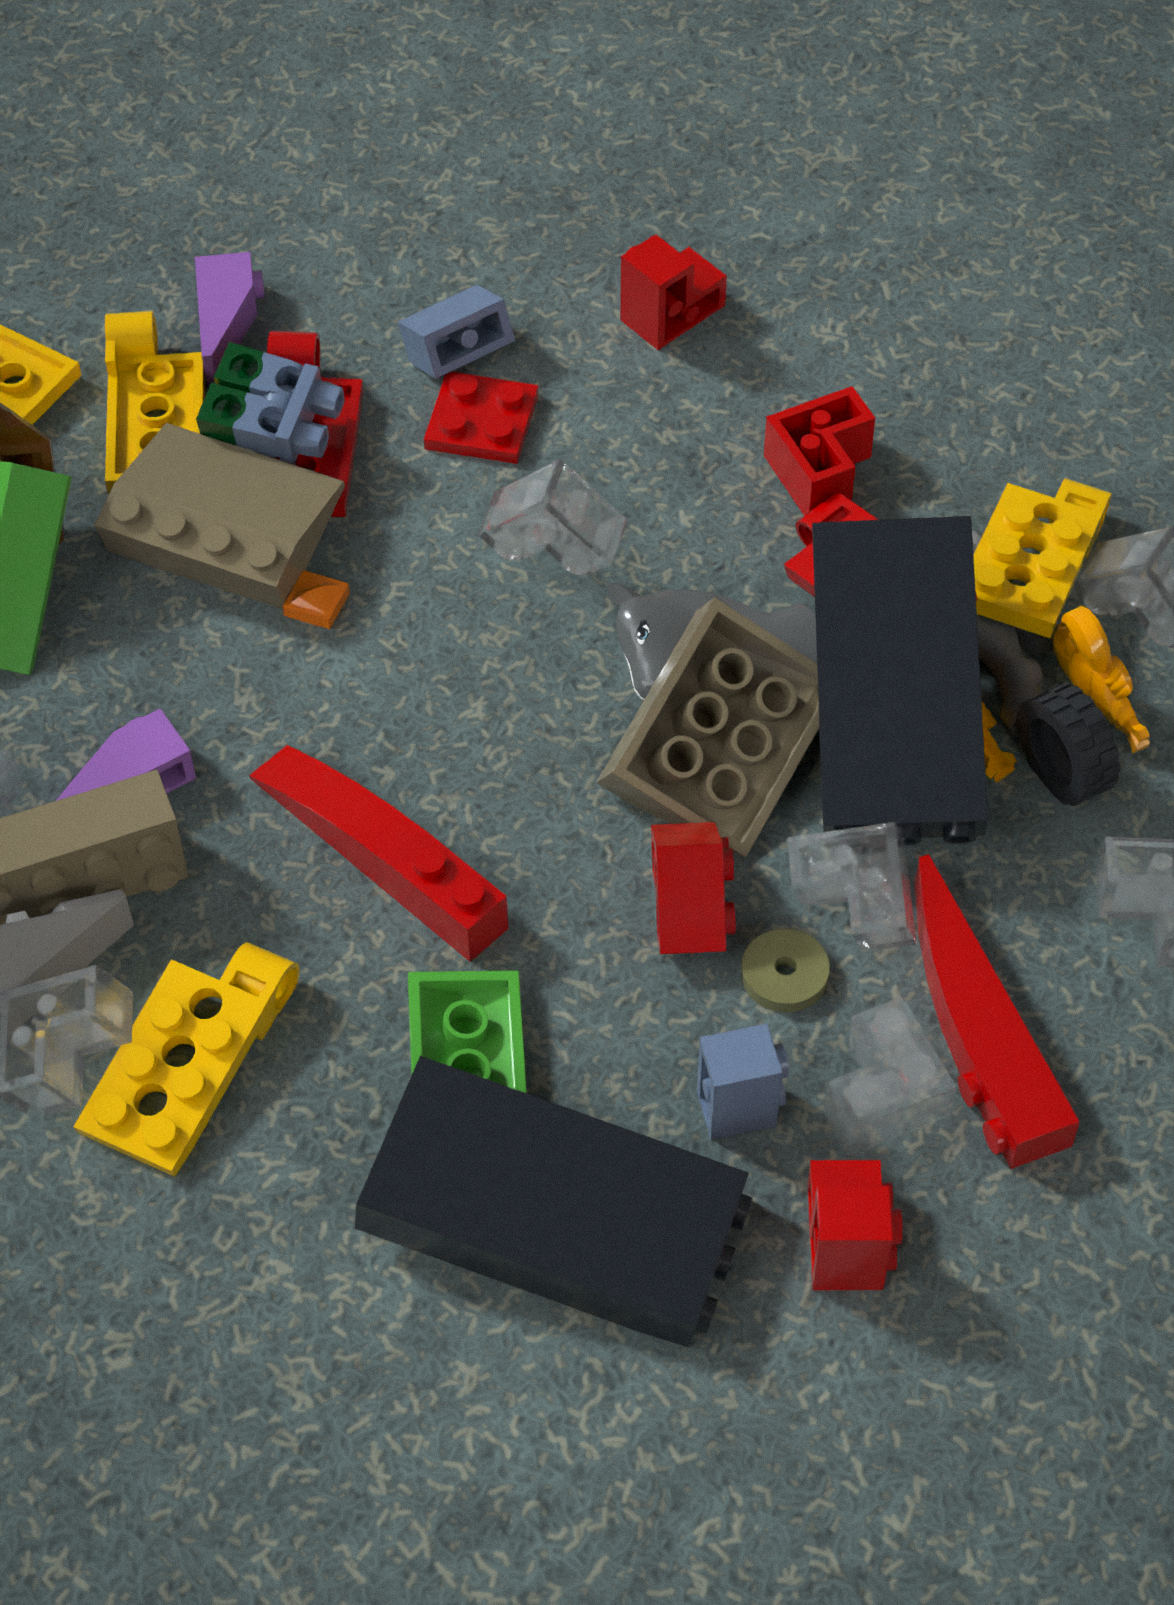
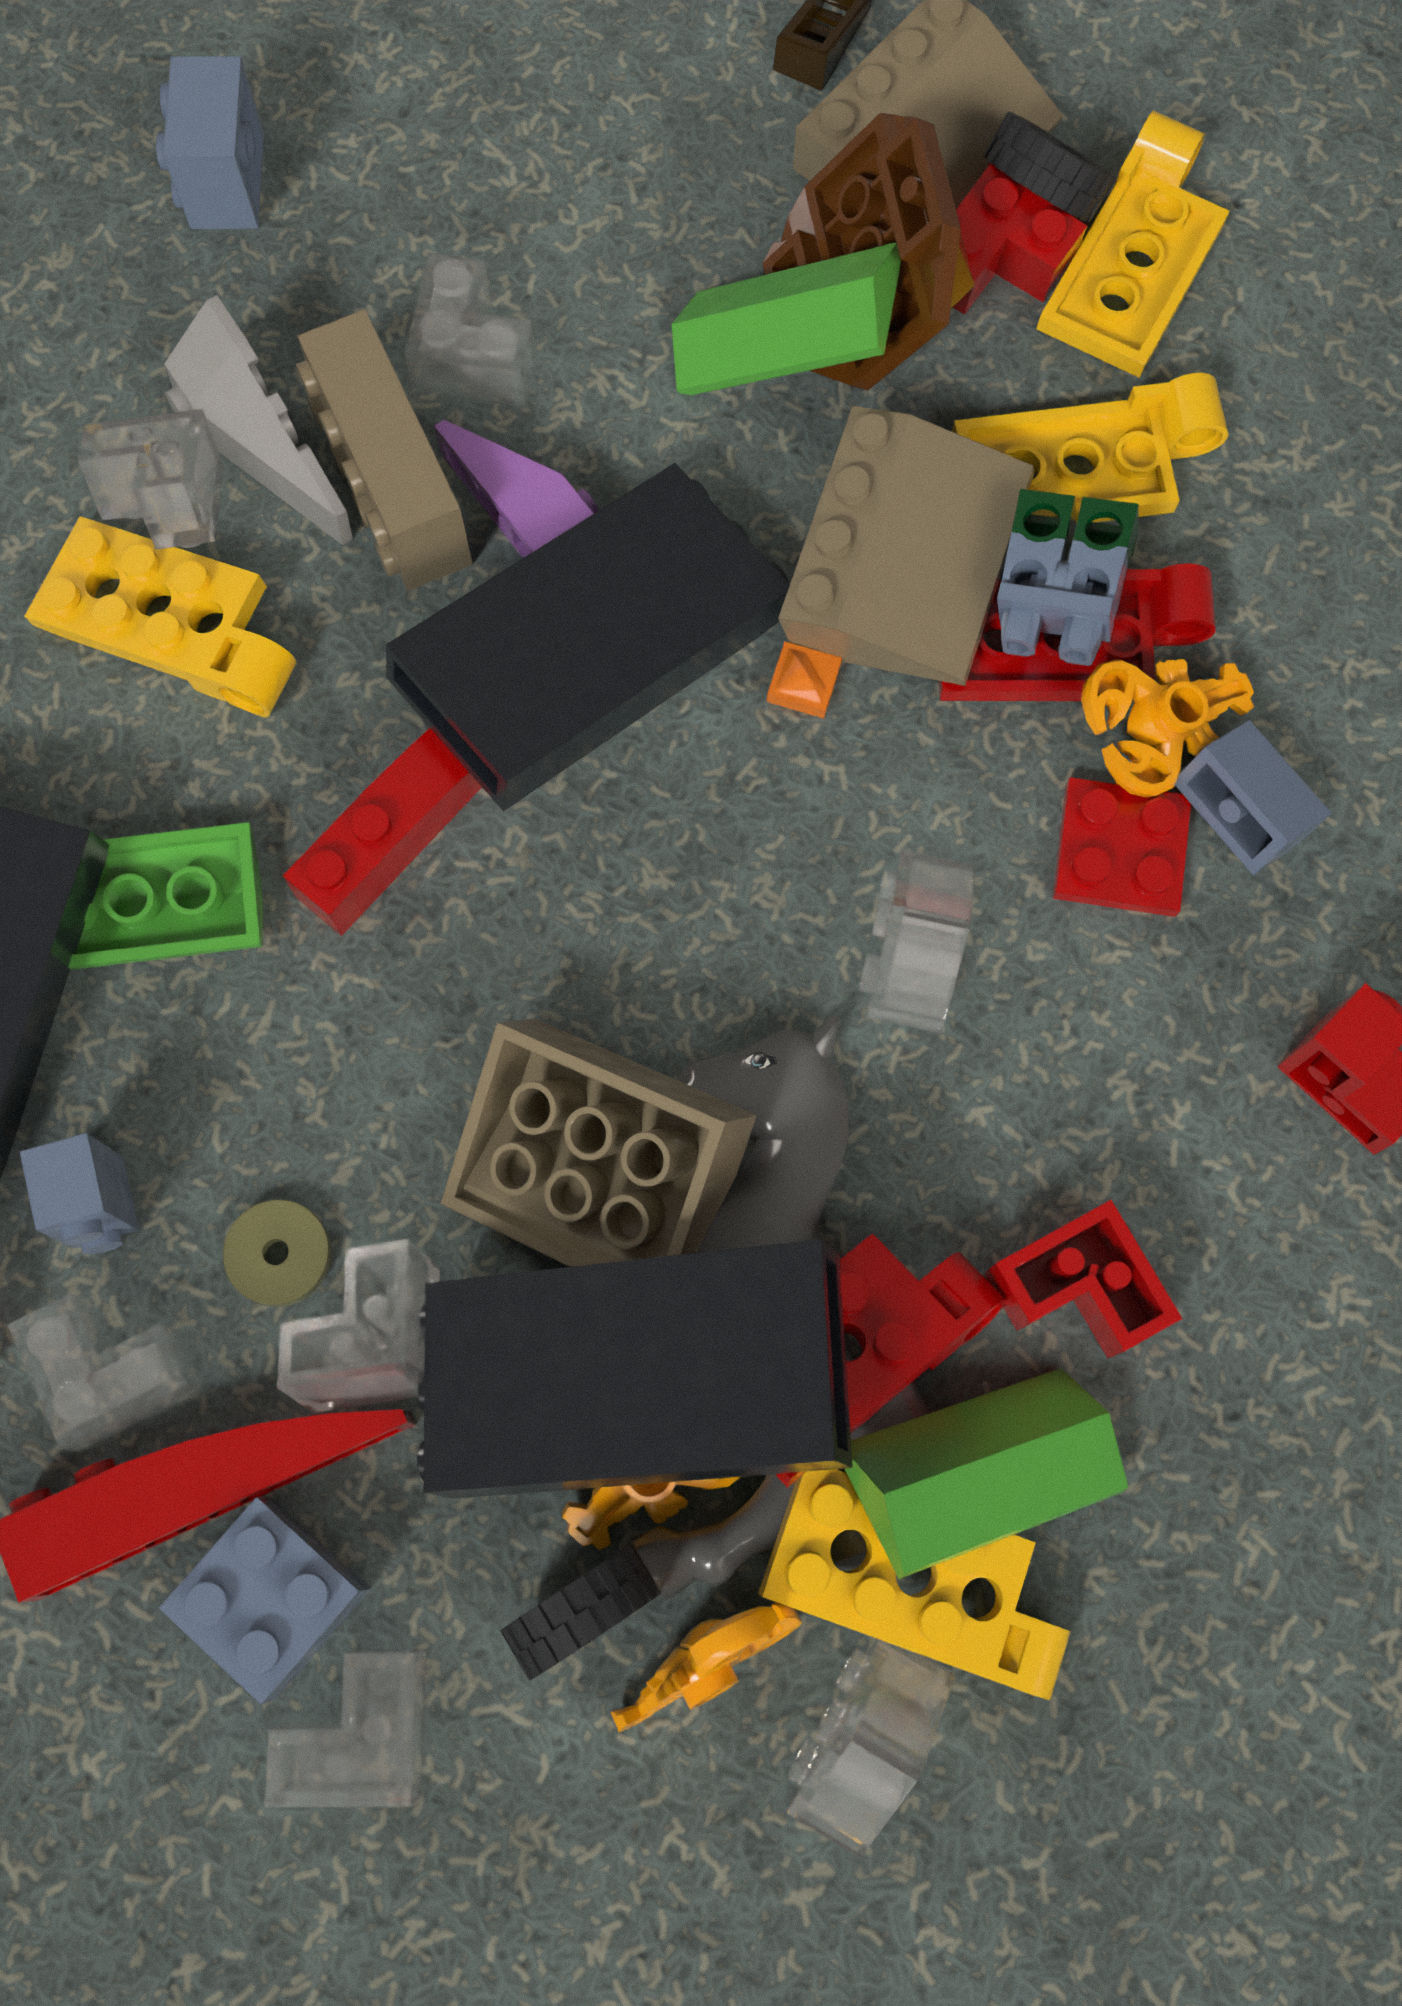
camera: 85 degrees right, 20 degrees up
(225, 303) = (1257, 517): medium lavender slope -> none
(272, 718) = (586, 634): none -> black brick
(385, 371) = (1161, 717): none -> light orange animal
(689, 880) = (369, 1125): red brick -> none
(952, 483) = (985, 1469): none -> bright green slope
(1067, 961) = (264, 1599): none -> sand blue brick

